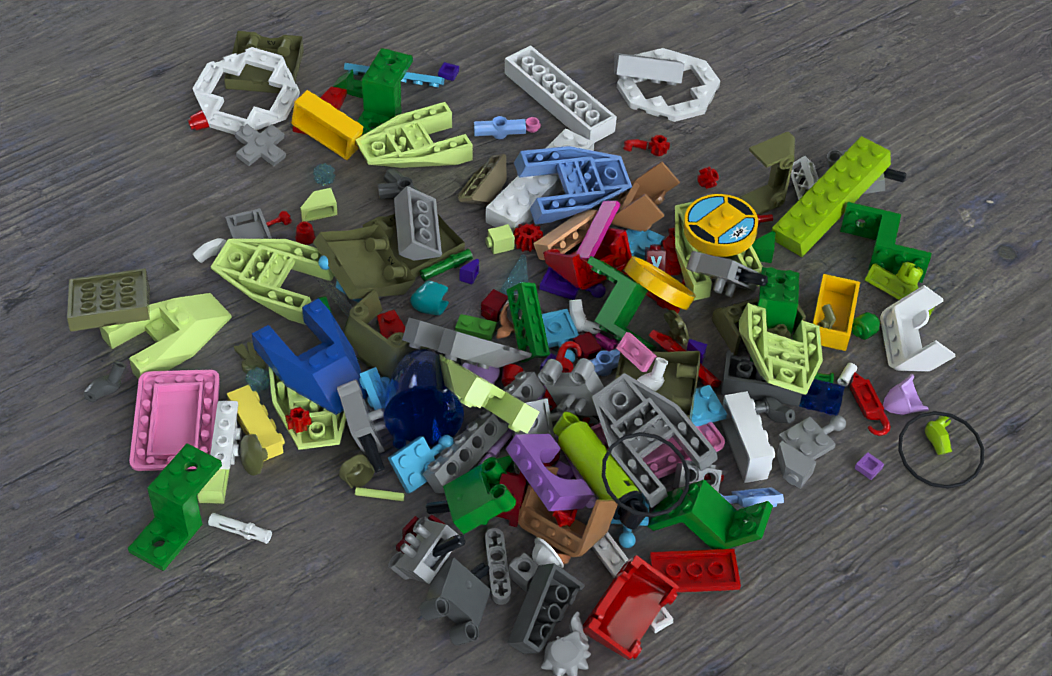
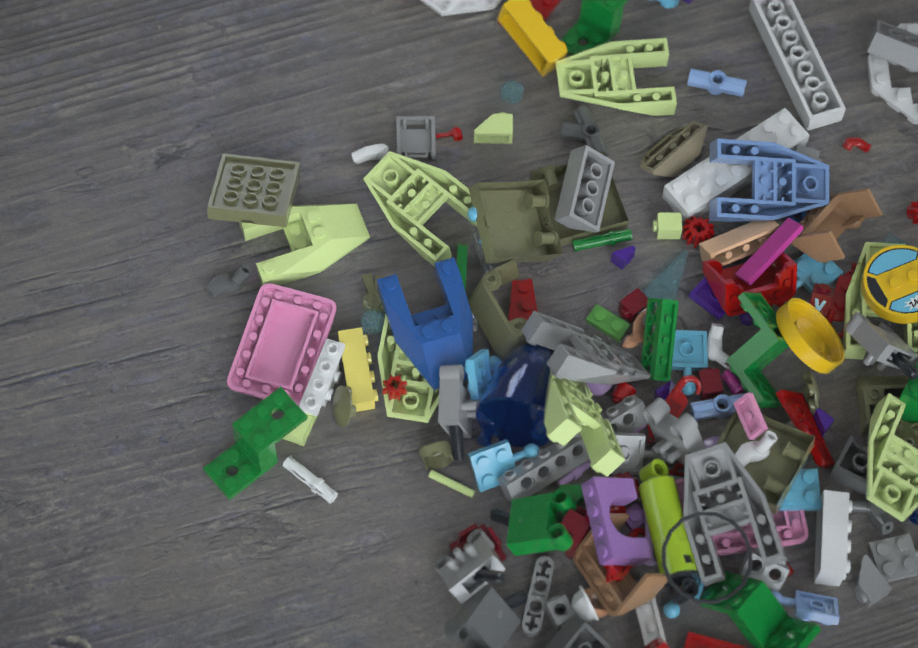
camera: 20 degrees right, 15 degrees up
(260, 145) = (458, 35): light grey plate -> none
(305, 233) = (471, 160): red hat -> none
(429, 297) = (570, 278): teal piece -> none
(532, 124) = (754, 83): bright pink plate -> none
(659, 145) = (881, 154): red gear -> none

